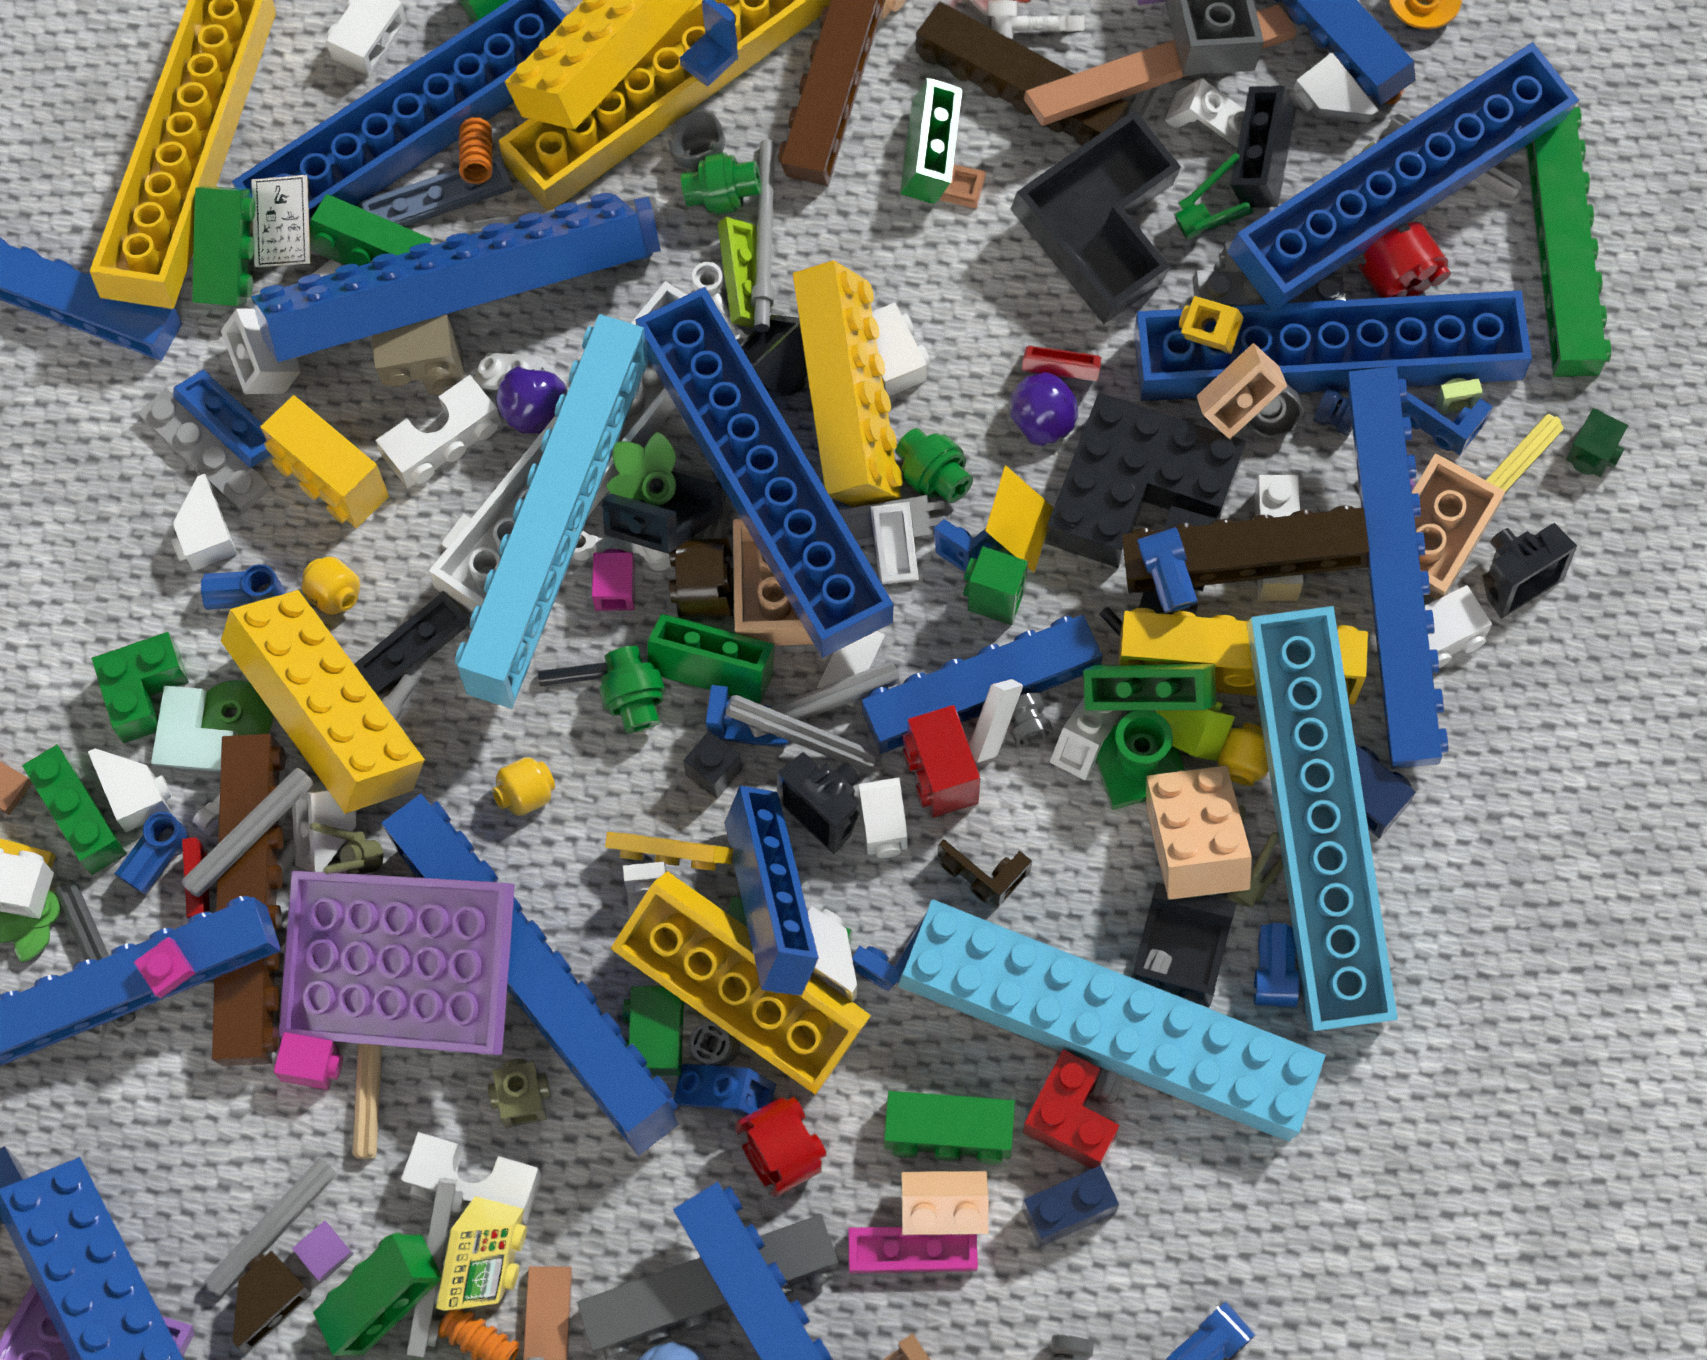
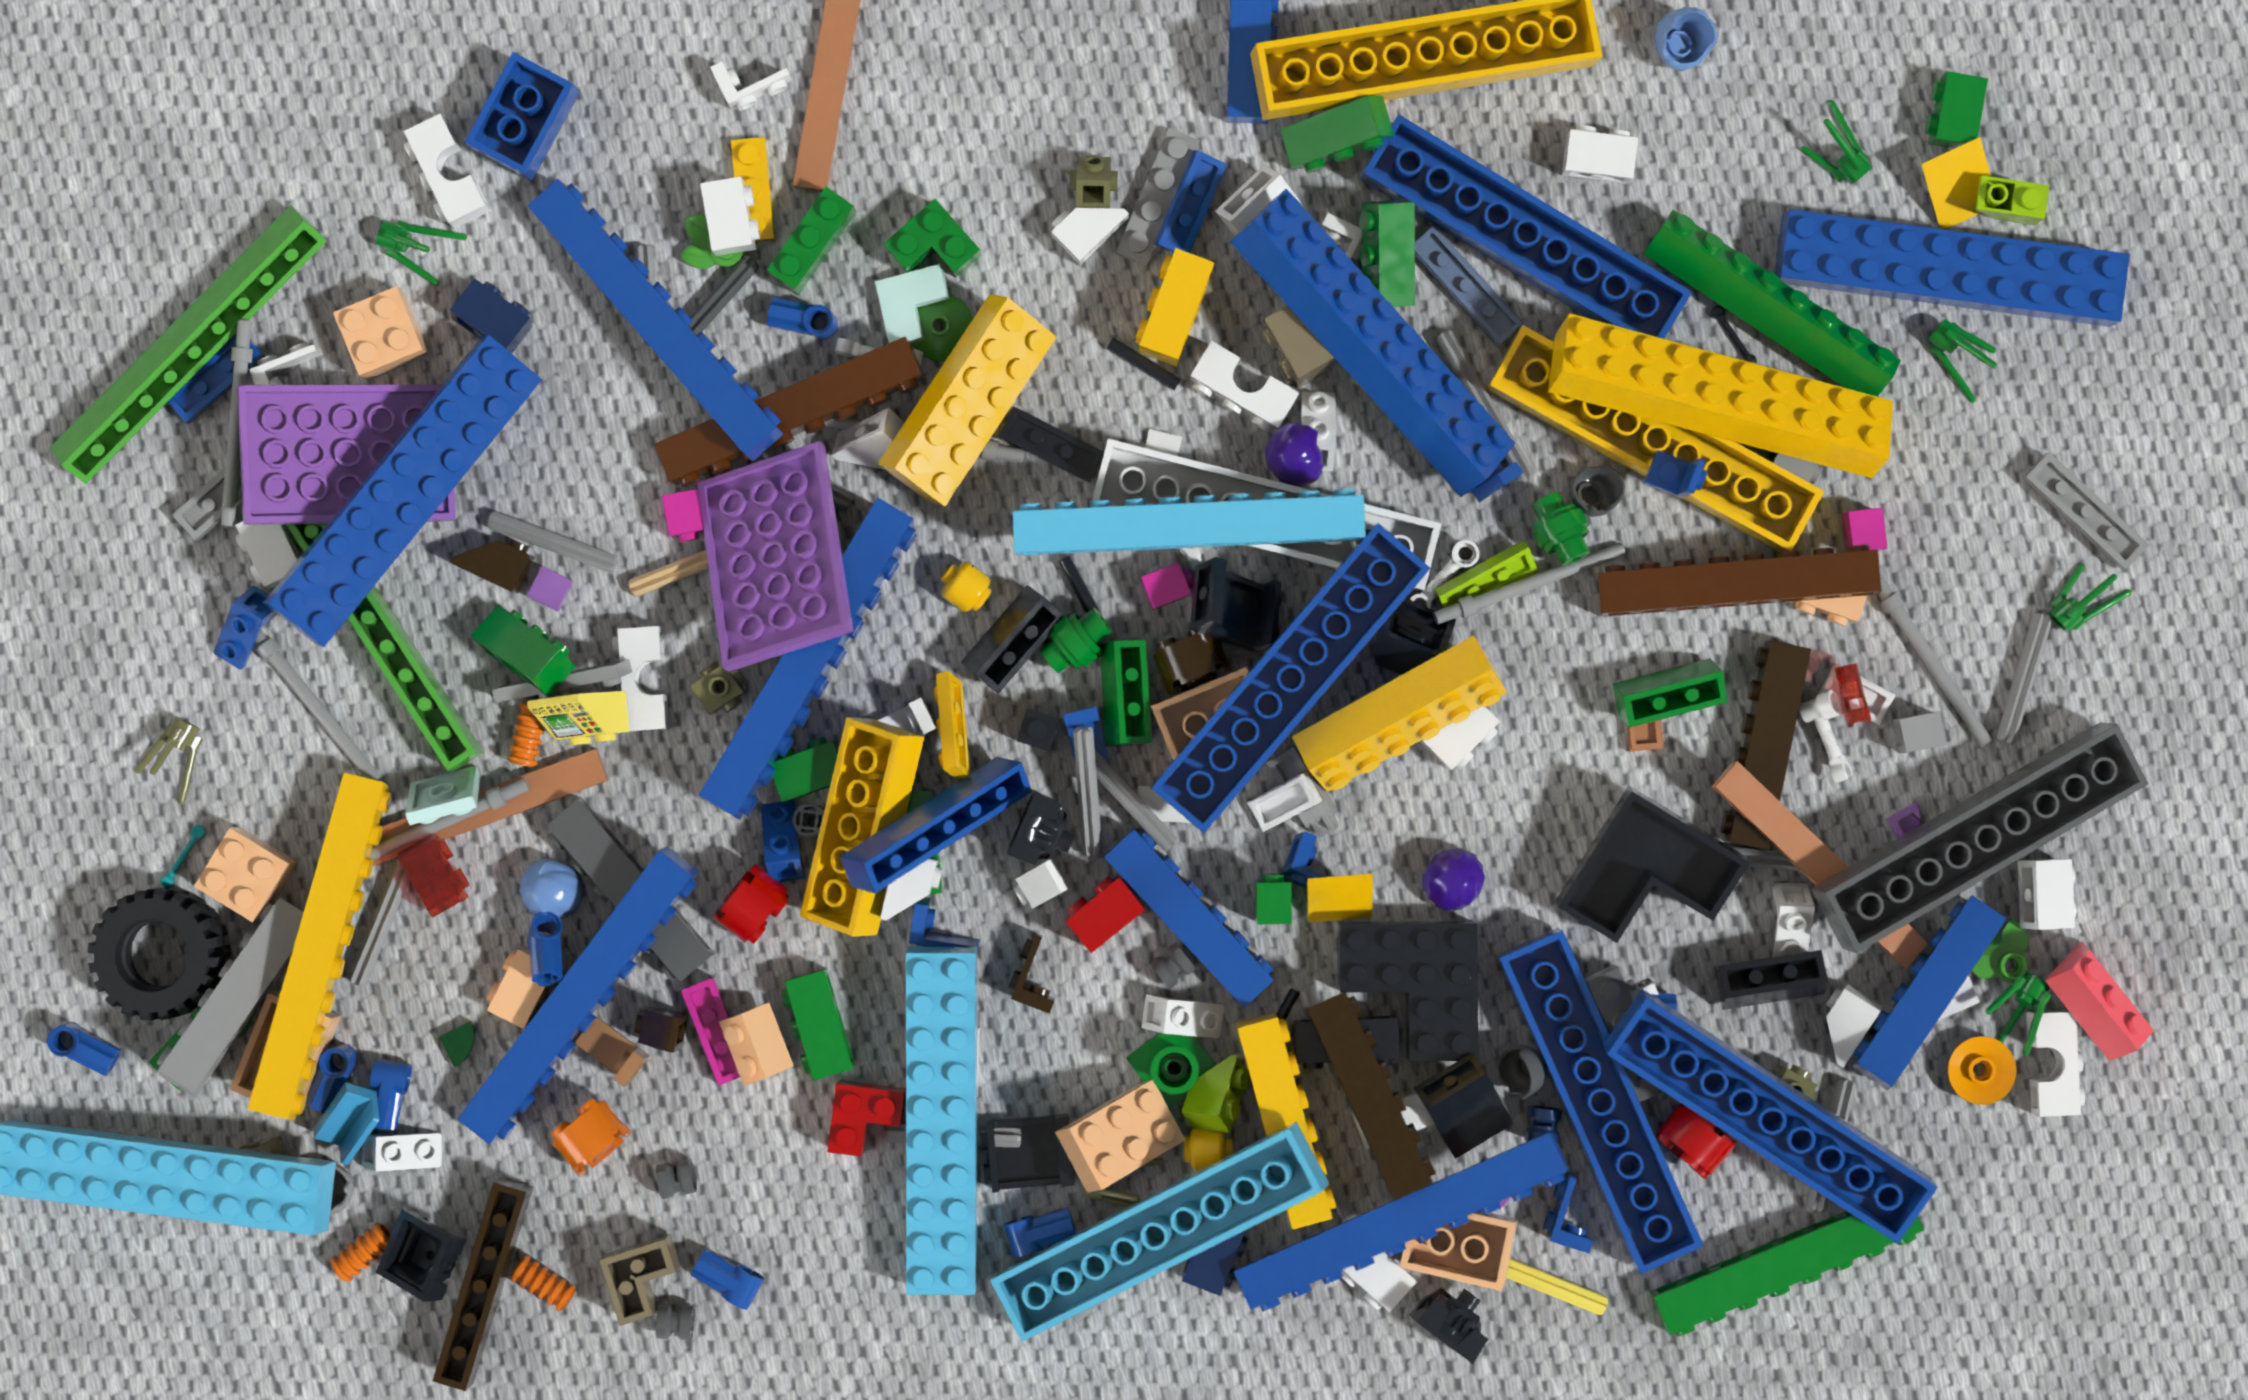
camera: 65 degrees right, 20 degrees up
(130, 788) = (846, 276): white slope -> none
(154, 499) = (1093, 181): none -> olive brick
(164, 967) = (697, 383): dark pink plate -> none
(193, 854) = (791, 364): red tile -> none
(239, 588) = (1045, 284): blue piece -> none
(247, 832) = (833, 394): light grey axle -> none
(281, 221) = (1372, 176): white sticker -> none
(329, 584) = (1076, 357): yellow head -> none
(357, 855) = (859, 482): olive plant -> none
(369, 525) = (1143, 363): none -> black piece
(475, 150) = (1513, 305): orange piece -> none
(602, 754) = (1012, 639): none -> black brick
(639, 466) = (1264, 571): bright green plate -> none
(885, 1306) = (661, 1028): none -> dark brown slope
(934, 465) = (1364, 808): green piece -> none
(994, 719) = (1155, 941): white tile -> none
(1061, 363) = (1501, 879): red tile -> none
(1070, 1206) = (790, 1138): dark blue brick -> none
(1150, 687) = (1218, 1060): green brick -> none
(1165, 560) = (1326, 1038): blue piece -> none
(1196, 219) = (1679, 946): green plant -> none
(1203, 311) = (1555, 989): yellow brick -> none
(1241, 391) = (1514, 1044): light nougat brick -> none
(1289, 468) = (1464, 1105): none -> black panel
(1458, 394) = (1596, 1219): yellowish green plate -> none
(1597, 444) = (1592, 1348): dark green brick -> none

